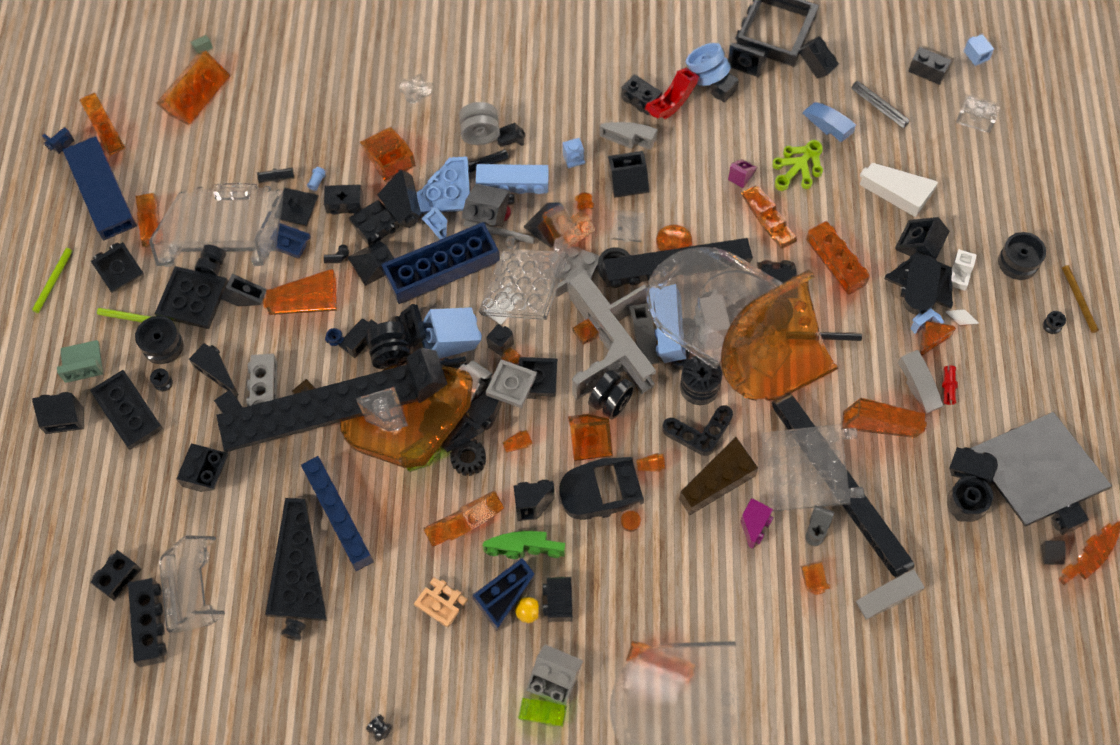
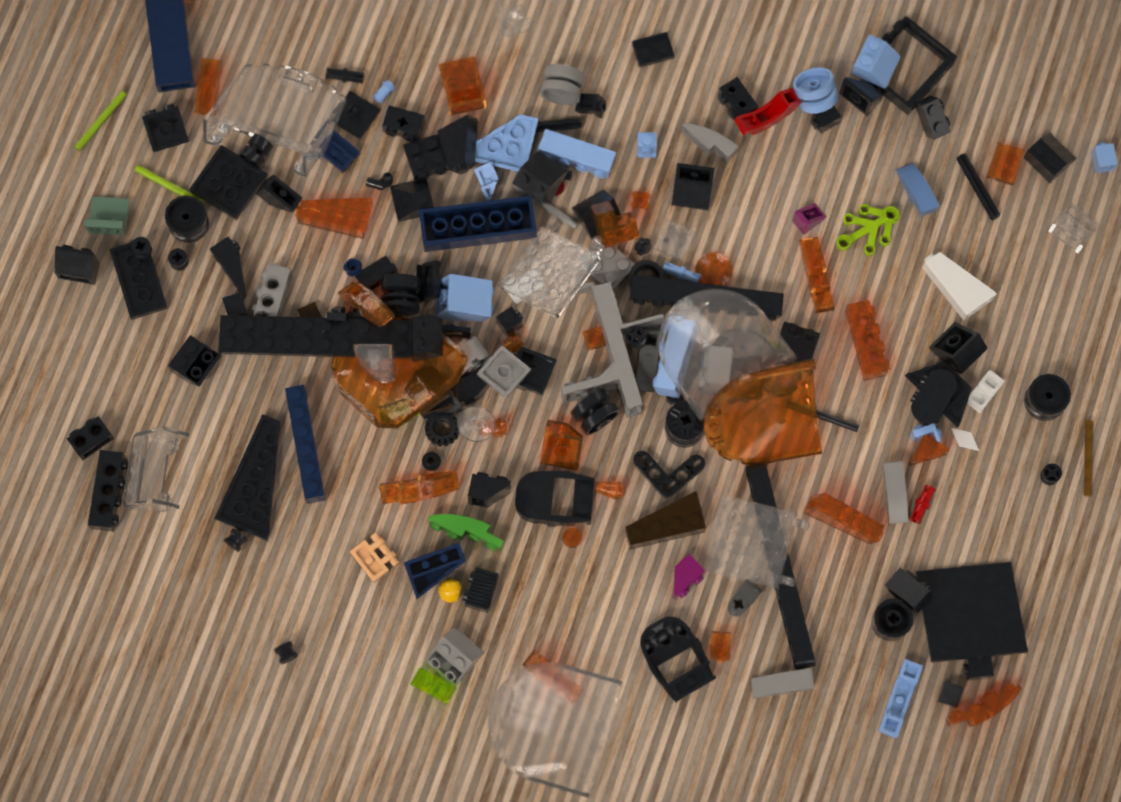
camera: 15 degrees right, 10 degrees up
(123, 382) = (144, 251): none -> black wheel
(334, 378) = (340, 314): none -> black plate
(358, 360) = (367, 303): none -> clear orange slope
(467, 496) = (431, 467): none -> black plate
(500, 449) = (476, 431): none -> clear dish
(550, 77) = (653, 49): none -> black plate
(601, 238) = (643, 246): none -> black plate
(622, 311) = (633, 333): none -> black wheel
(639, 249) = (681, 273): none -> light blue pin
(751, 26) = (876, 62): none -> light blue slope
(758, 592) = (665, 641): none -> black slope
(896, 78) = (1005, 163): none -> clear orange plate
(1007, 572) = (900, 698): none -> light blue slope

